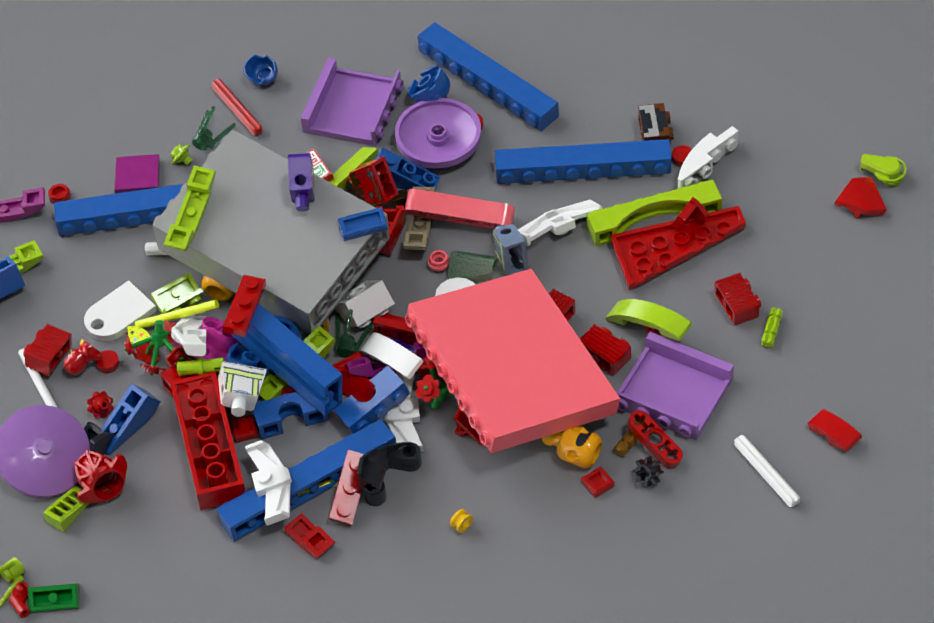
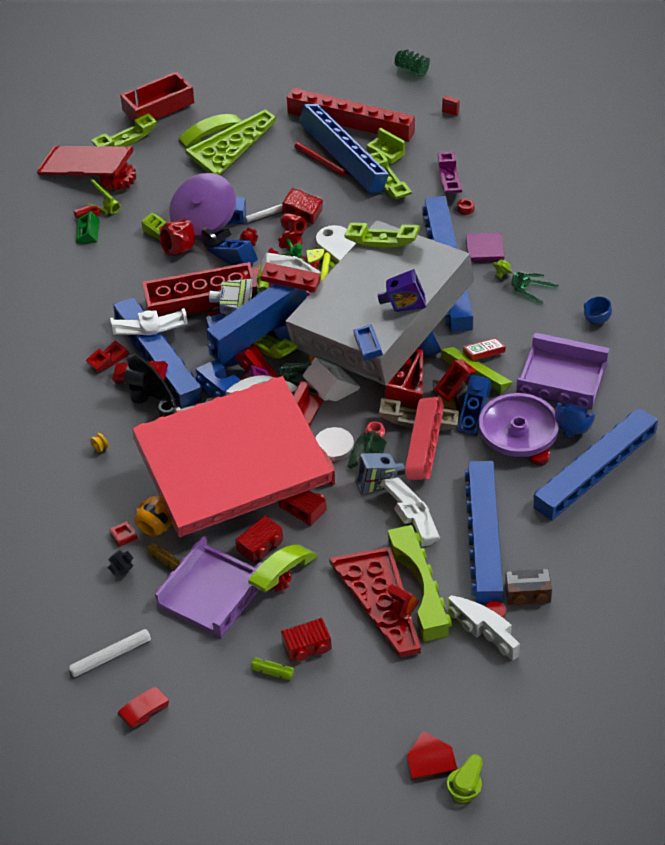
camera: 90 degrees right, 5 degrees down
(237, 107) = (559, 301): axle -> none
(654, 449) = (154, 560): red beam -> none

